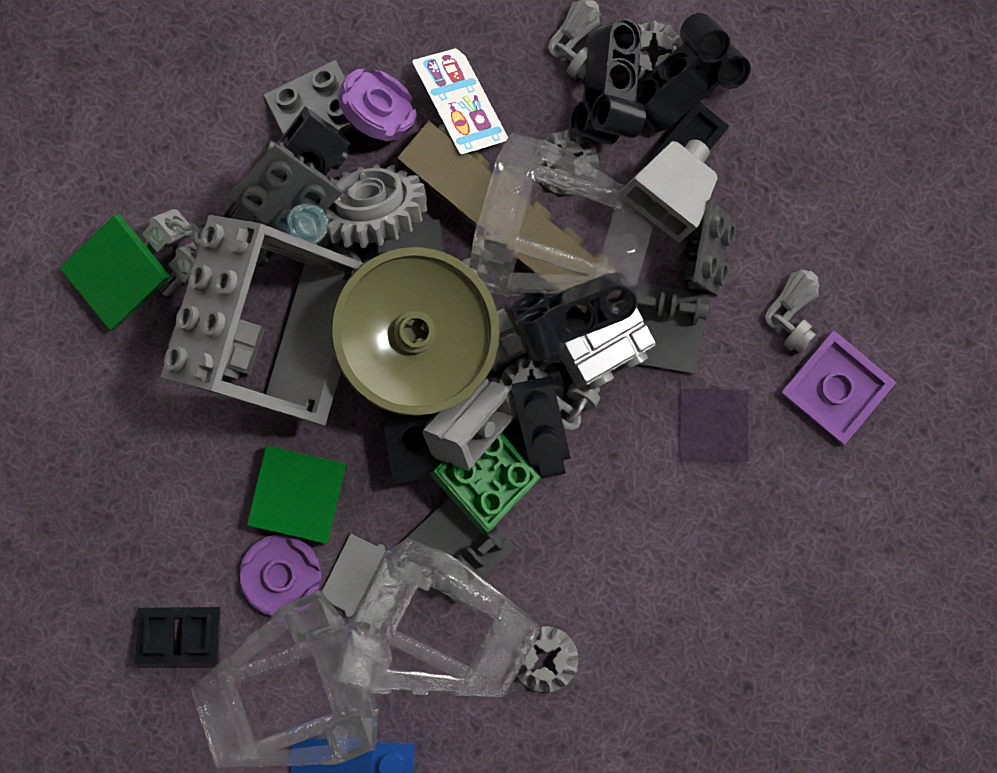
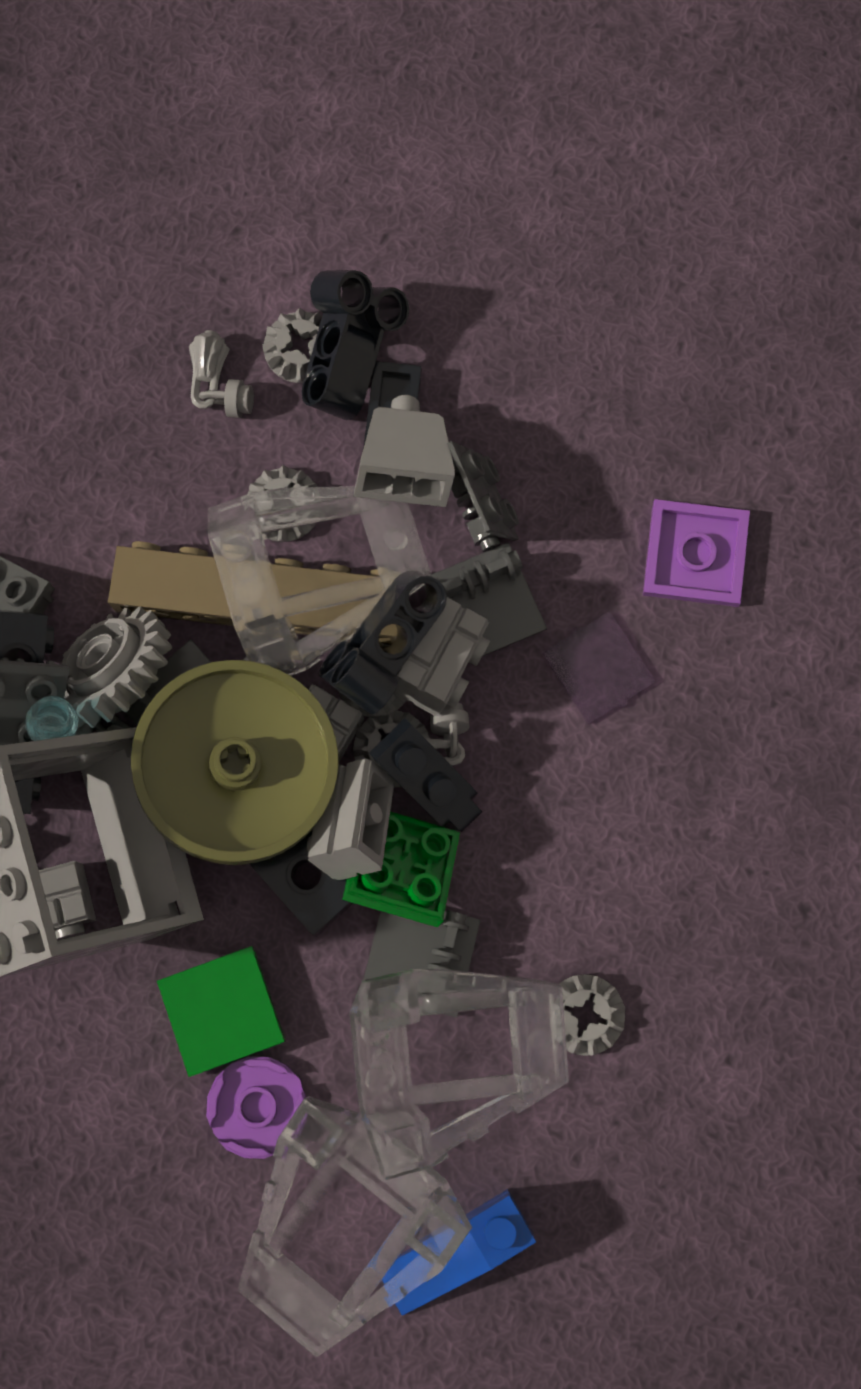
camera: 30 degrees left, 5 degrees down
(157, 635) = (167, 1257): black piece -> none
(352, 573) = (330, 1056): light grey piece -> none
(377, 104) = (54, 564): medium lavender tile -> none
(460, 101) = (137, 508): sticker -> none
(609, 107) = (278, 398): black piece -> none
(798, 291) = (595, 483): light grey piece -> none

